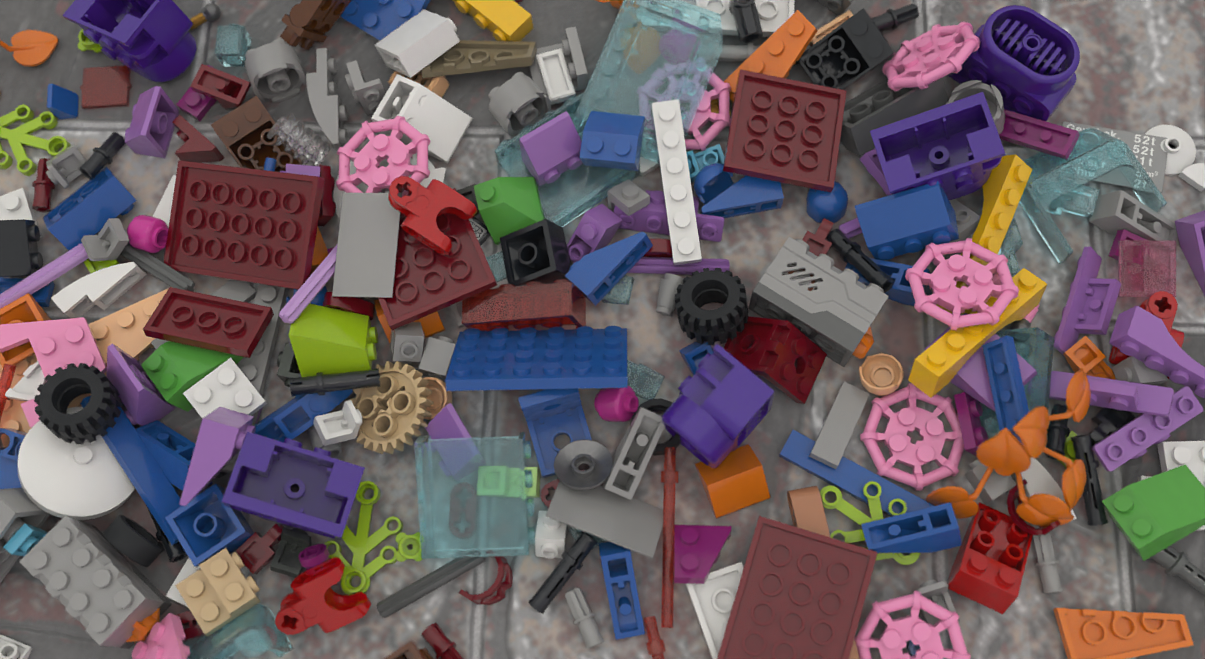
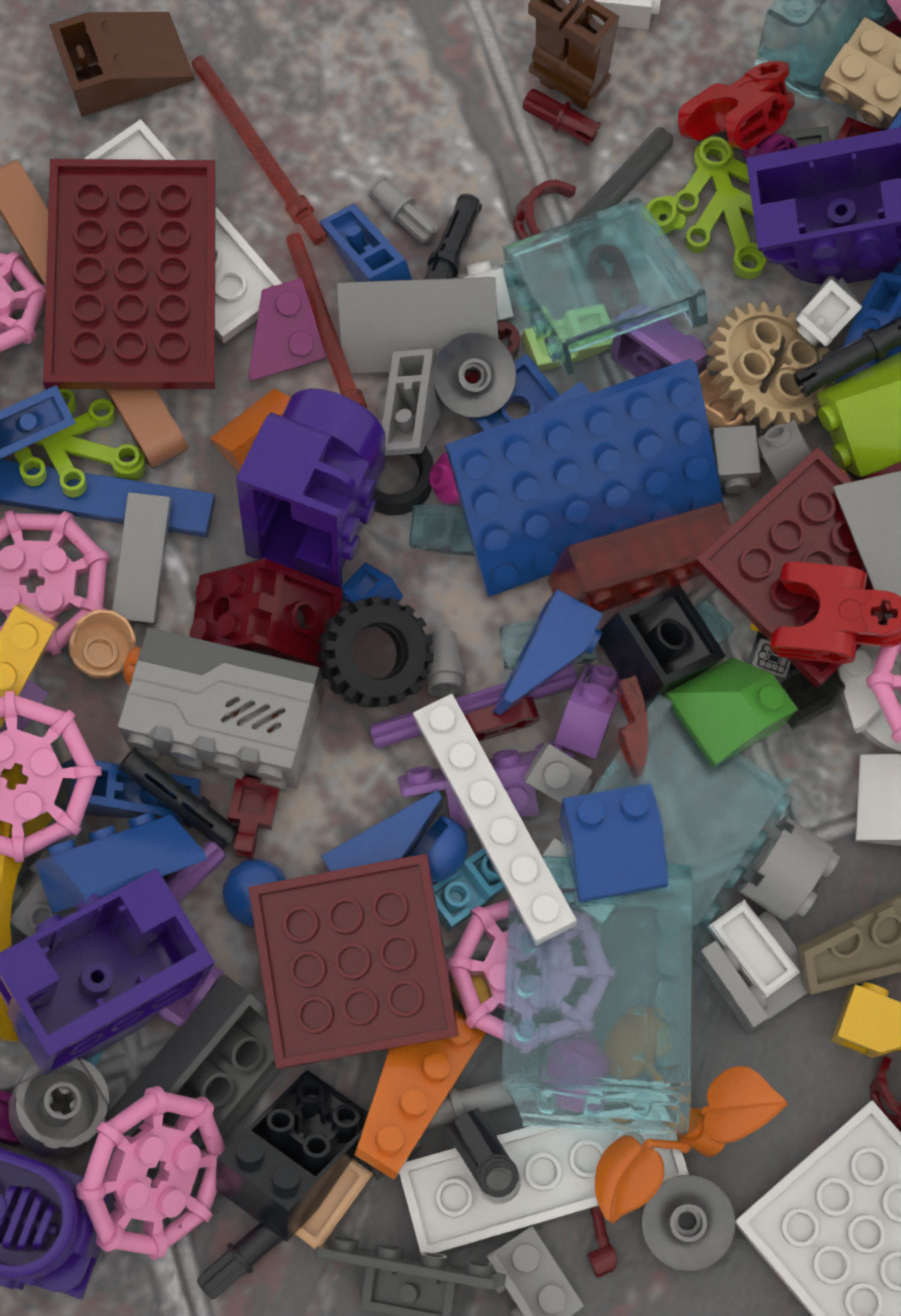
camera: 155 degrees right, 0 degrees up
(551, 149) = (702, 802): medium lavender slope -> none
(575, 198) = (635, 736): none -> clear red slope

